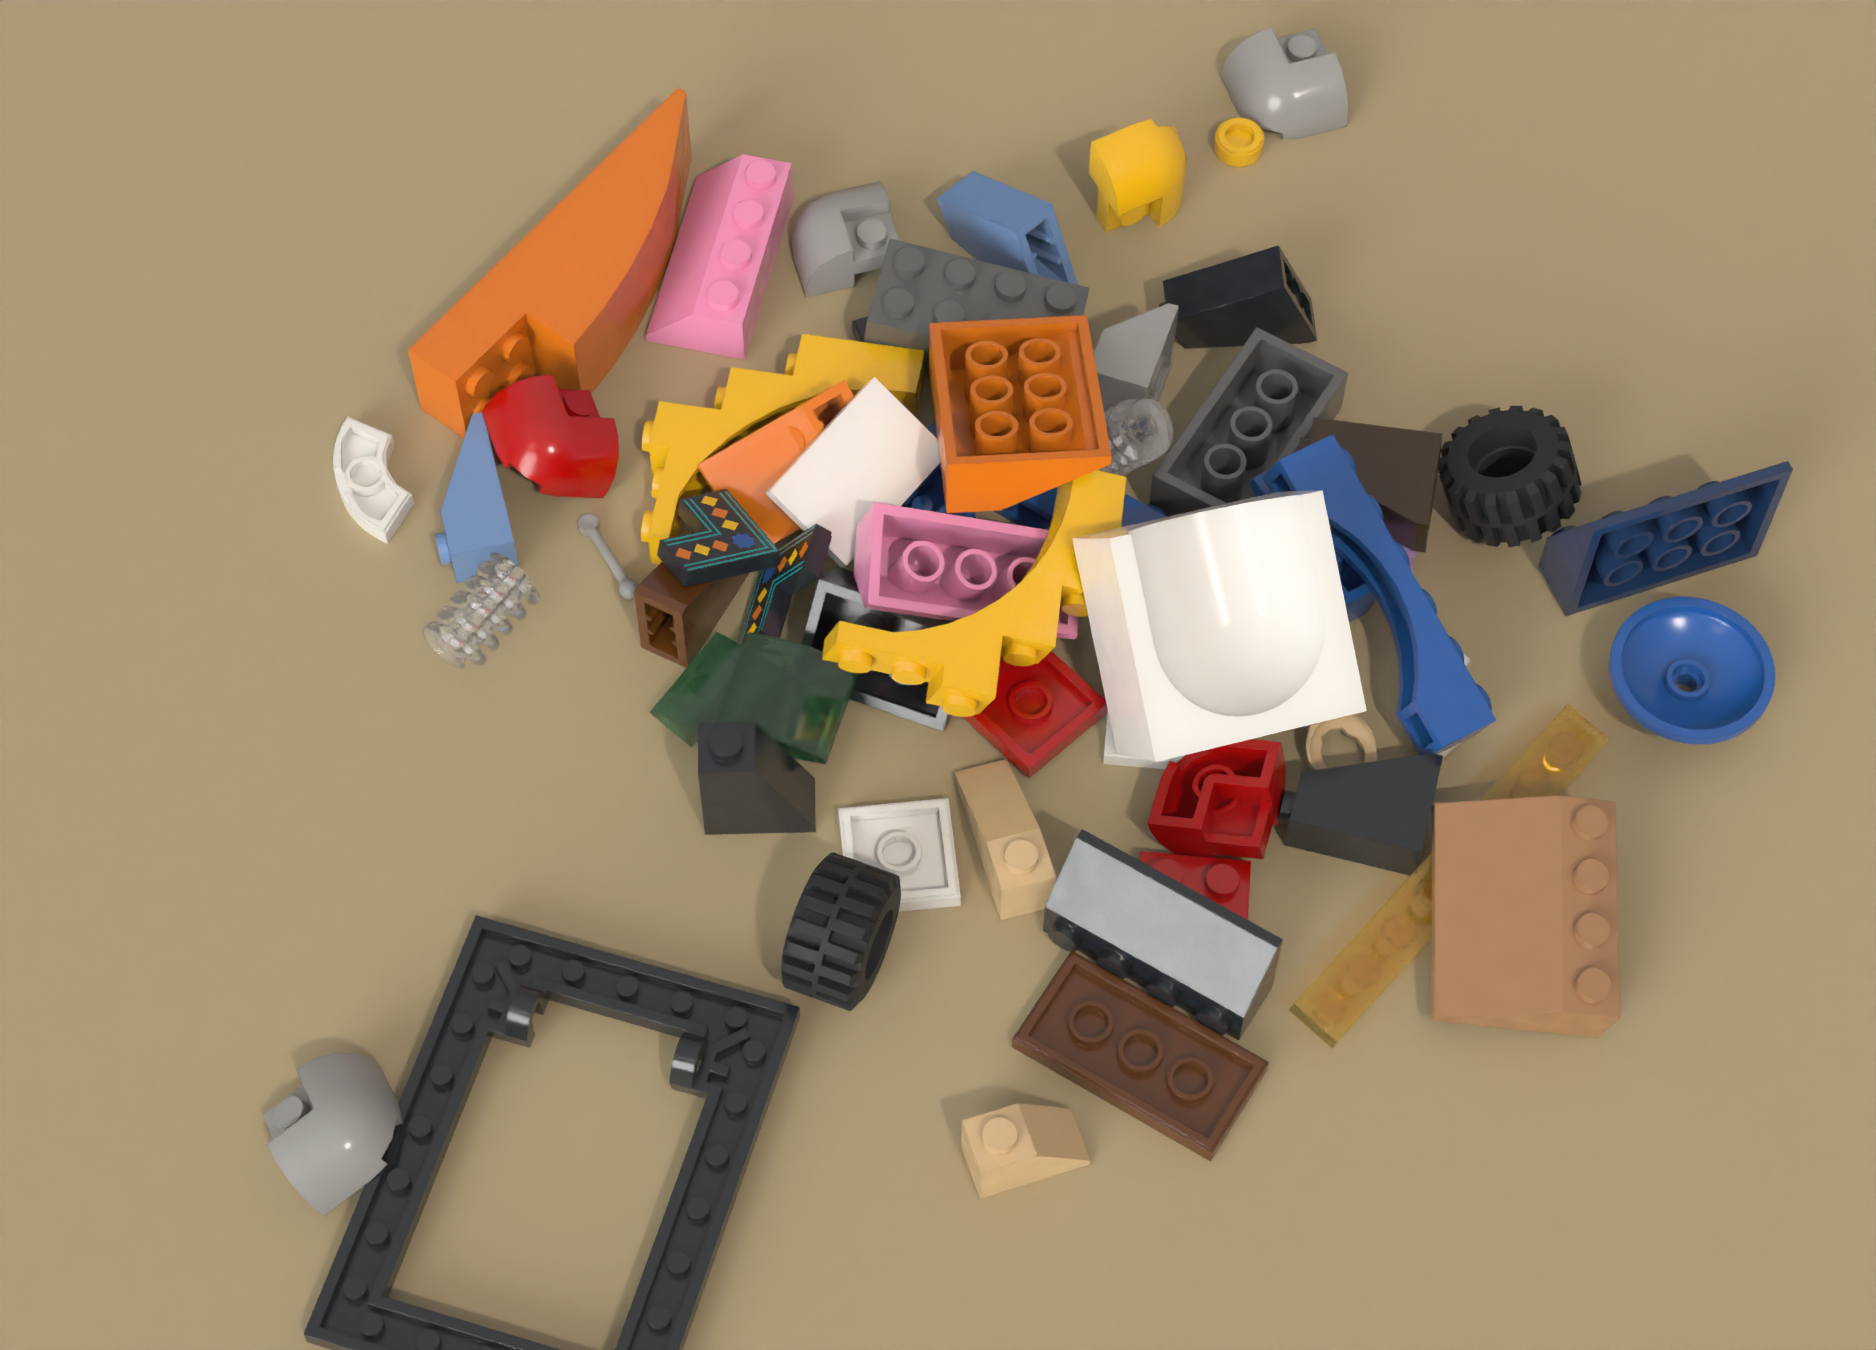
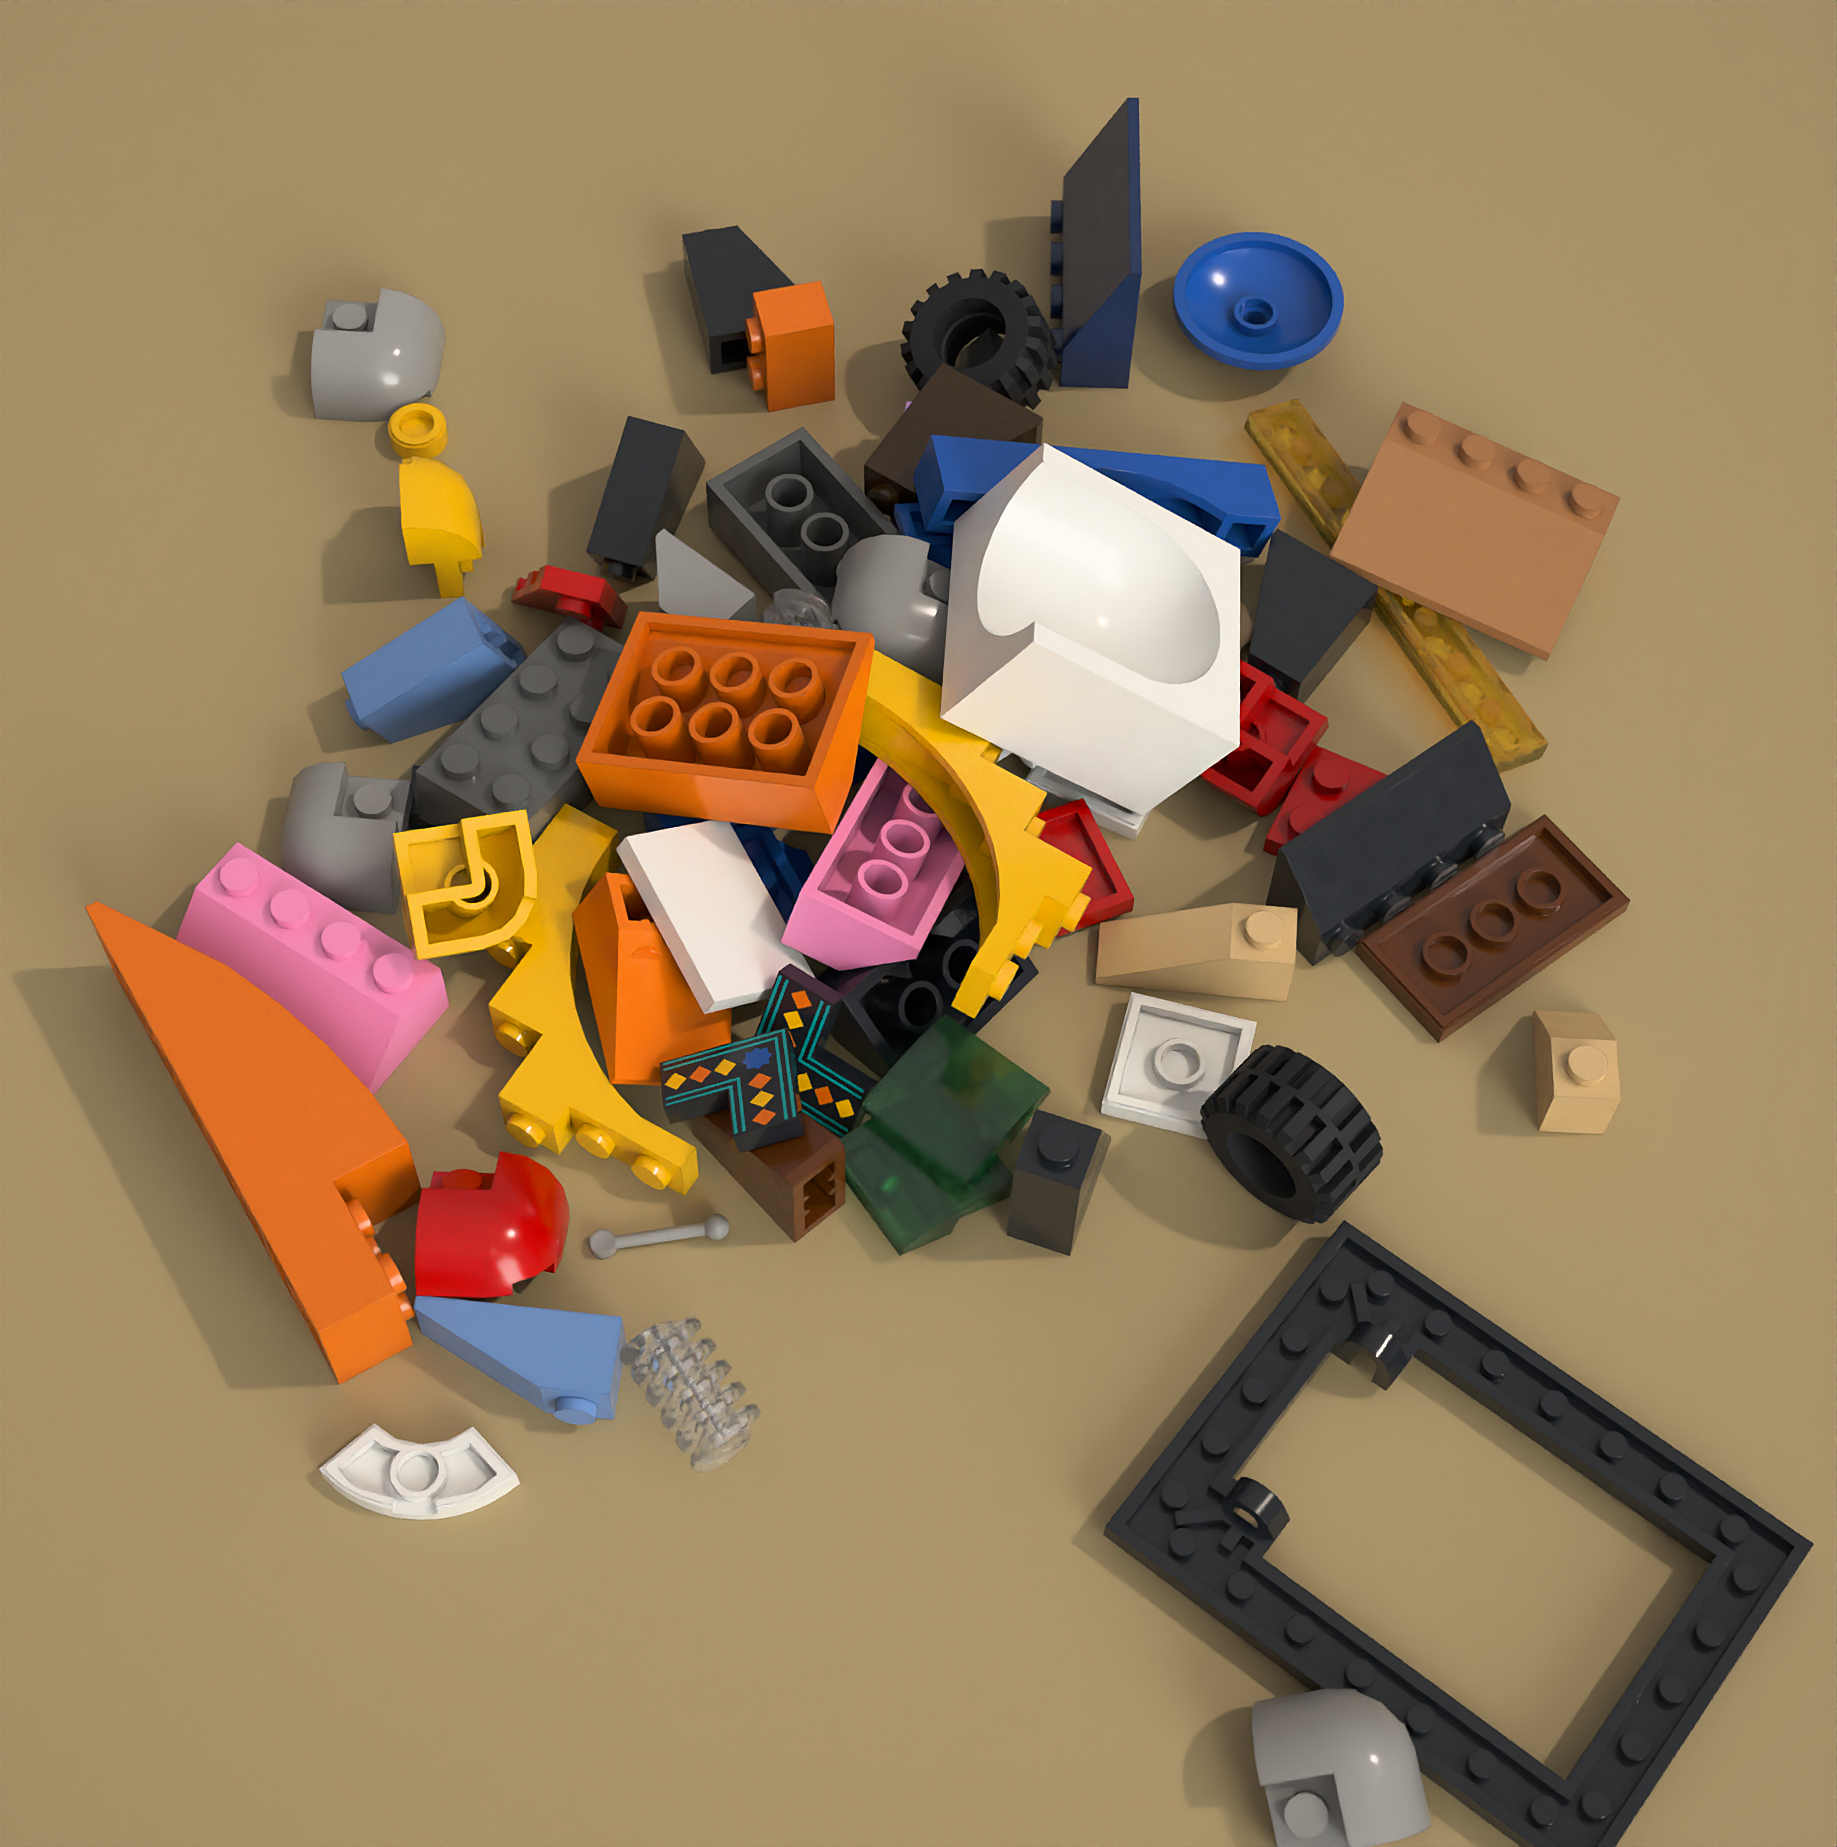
camera: 70 degrees left, 0 degrees up
(800, 301) = (465, 883): none -> yellow brick
(1113, 283) = (572, 594): none -> red wing
(1184, 479) = (899, 598): none -> light grey brick
(1439, 344) = (791, 346): none -> orange brick
(1478, 301) = (722, 275): none -> black slope

